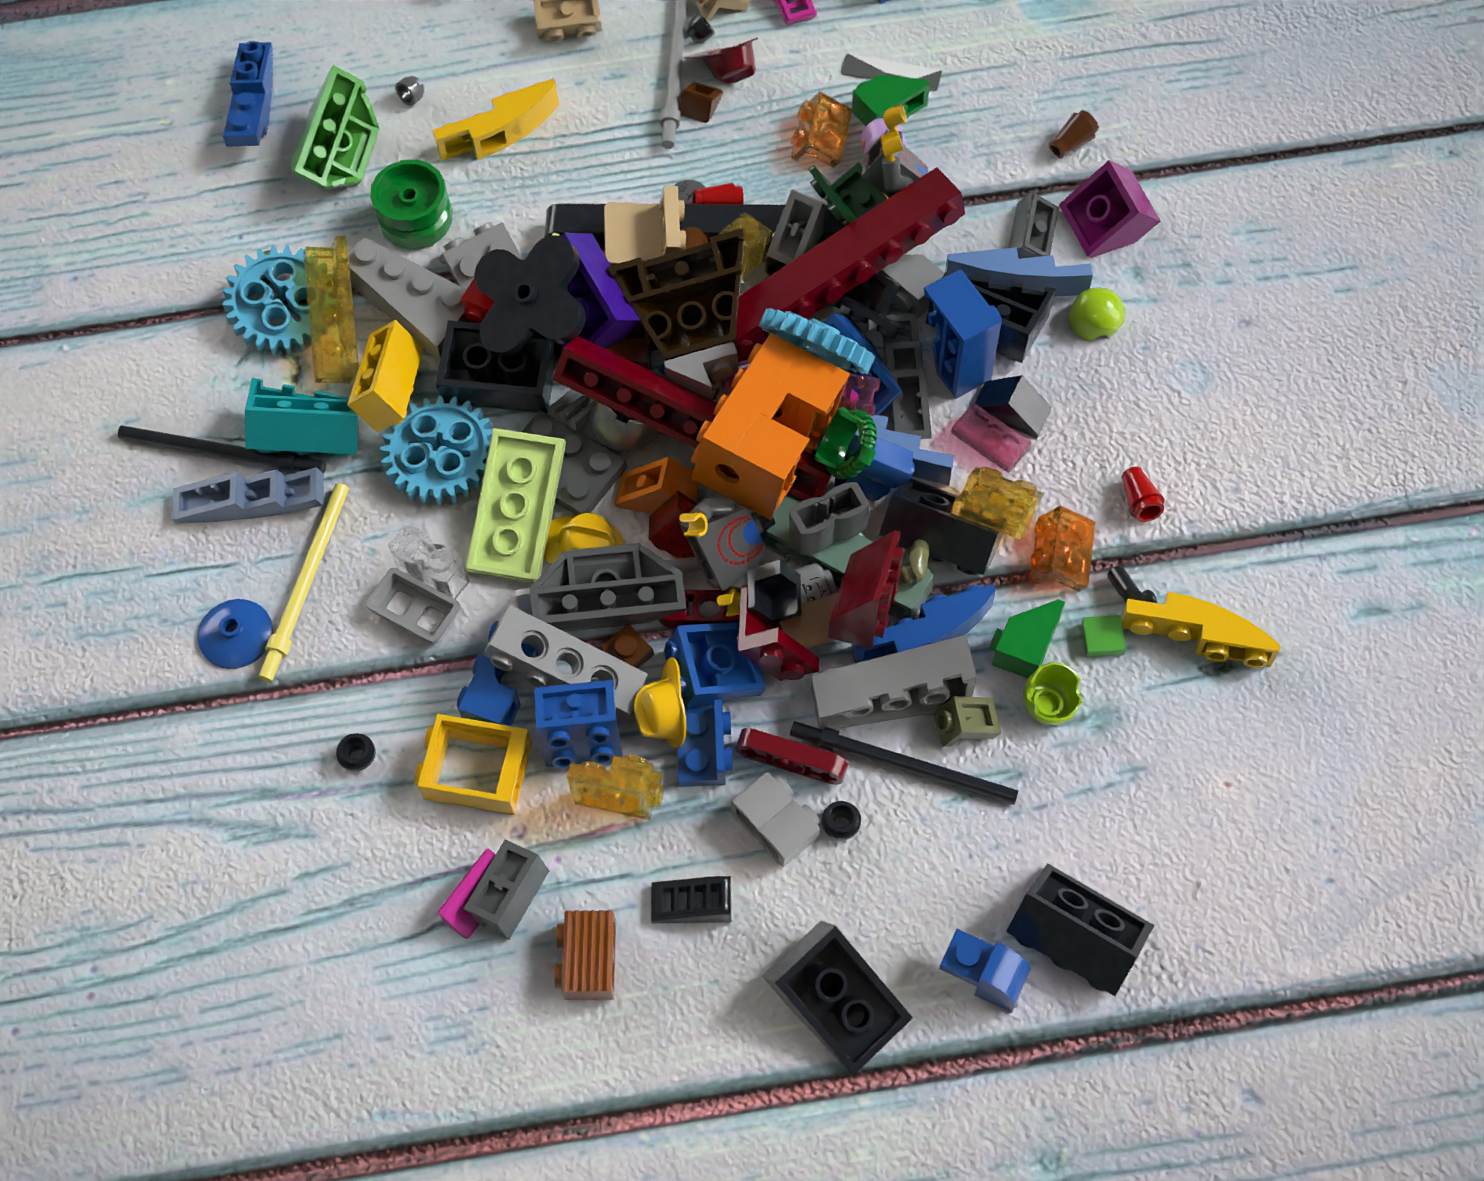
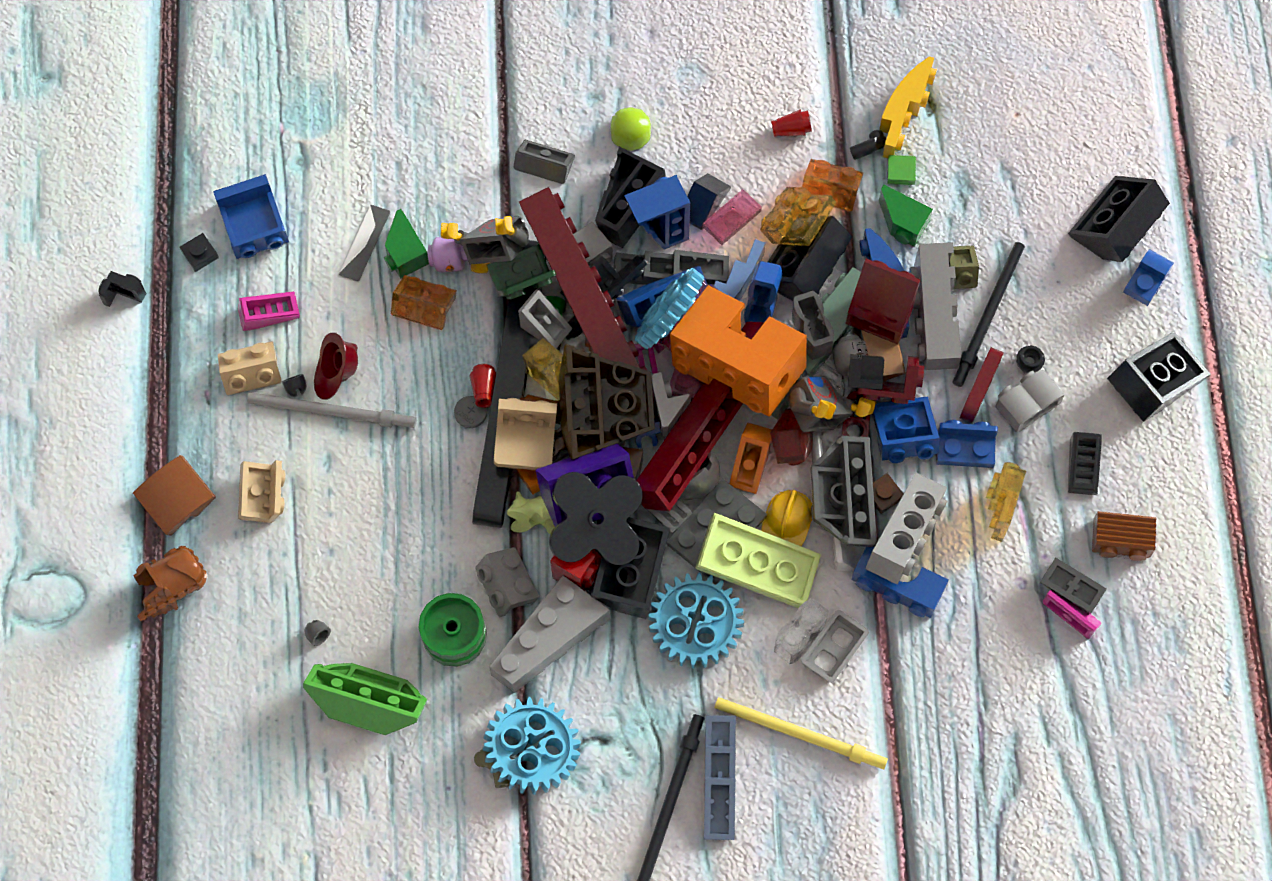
camera: 85 degrees left, 5 degrees up
(242, 645) = (835, 805): blue dish -> none
(251, 96) = (301, 772): blue slope -> none
(299, 421) = (662, 728): teal wedge -> none
(331, 312) = (557, 699): clear yellow fence -> none
(348, 745) = (959, 689): black plate -> none
(386, 376) = (632, 651): yellow brick -> none
(437, 739) = (980, 578): yellow window -> none
(510, 120) = (368, 547): yellow slope -> none
(577, 723) = (952, 518): blue bracket -> none
(661, 708) = (939, 462): yellow piece -> none
(699, 101) = (370, 393): reddish brown slope -> none
(836, 440) = (751, 319): green piece -> none
(918, 563) = (842, 272): olive arm -> none
(1035, 272) = (588, 179): medium blue slope -> none
(1052, 694) = (949, 207): lime hair -> none
(1076, 132) = (459, 114): reddish brown cone -> none
(1109, 210) = (541, 103): magenta slope -> none

